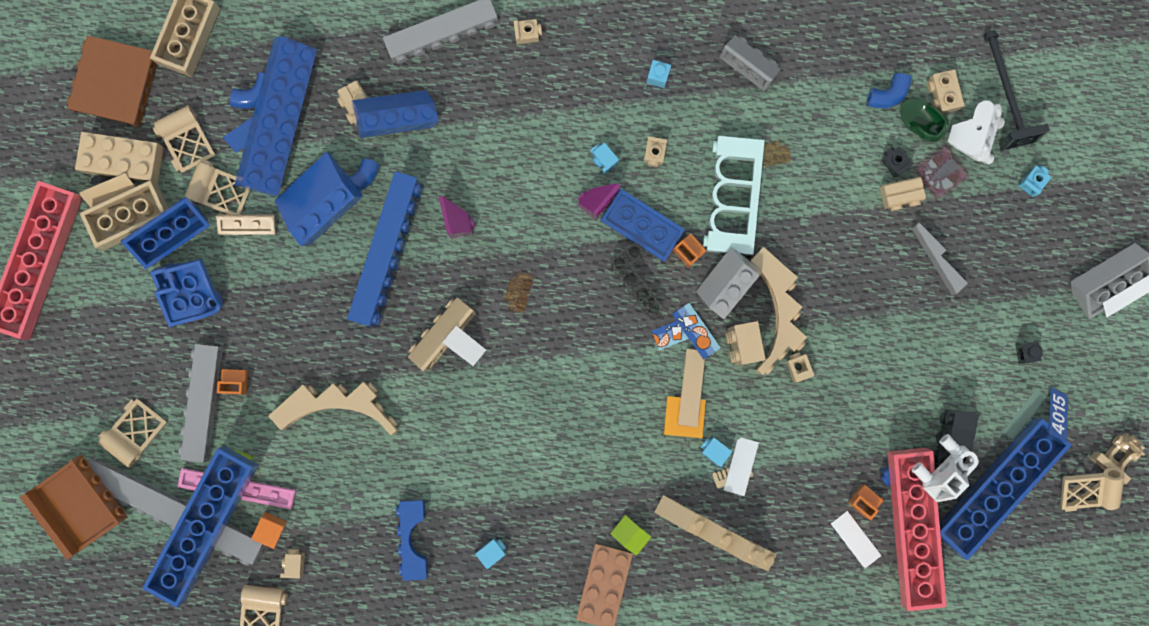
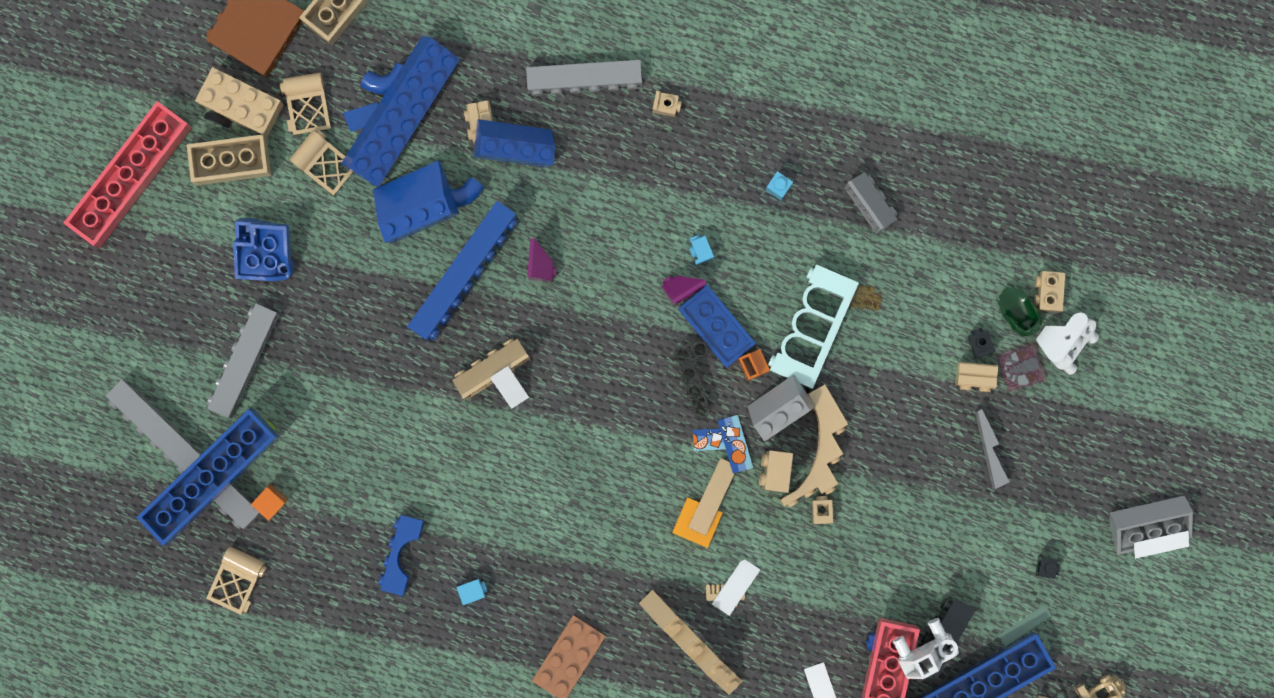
camera: 20 degrees right, 0 degrees up
(74, 507) = (94, 420): dark orange panel -> none
(107, 190) = (218, 130): tan sticker -> none
(123, 447) = (155, 377): tan piece -> none
(166, 232) = (262, 189): blue slope -> none
(233, 382) = (279, 350): orange piece -> none
(246, 224) = (339, 204): tan tile -> none
(254, 492) = (266, 462): bright pink tile -> none
(293, 564) = (281, 541): tan brick -> none
(305, 402) = (342, 392): tan arch -> none
(514, 290) = (572, 350): clear orange piece -> none
(630, 535) = (609, 618): lime piece -> none
(655, 143) = (751, 251): tan brick -> none
(715, 451) = (715, 564): medium azure brick -> none
(865, 502) = (843, 659): orange piece -> none
(893, 95) = (996, 279): blue cylinder -> none
(1023, 135) = (1109, 357): black tile -> none
(1030, 183) = (1104, 409): medium azure brick -> none
(1058, 414) = (1054, 635): blue sticker -> none

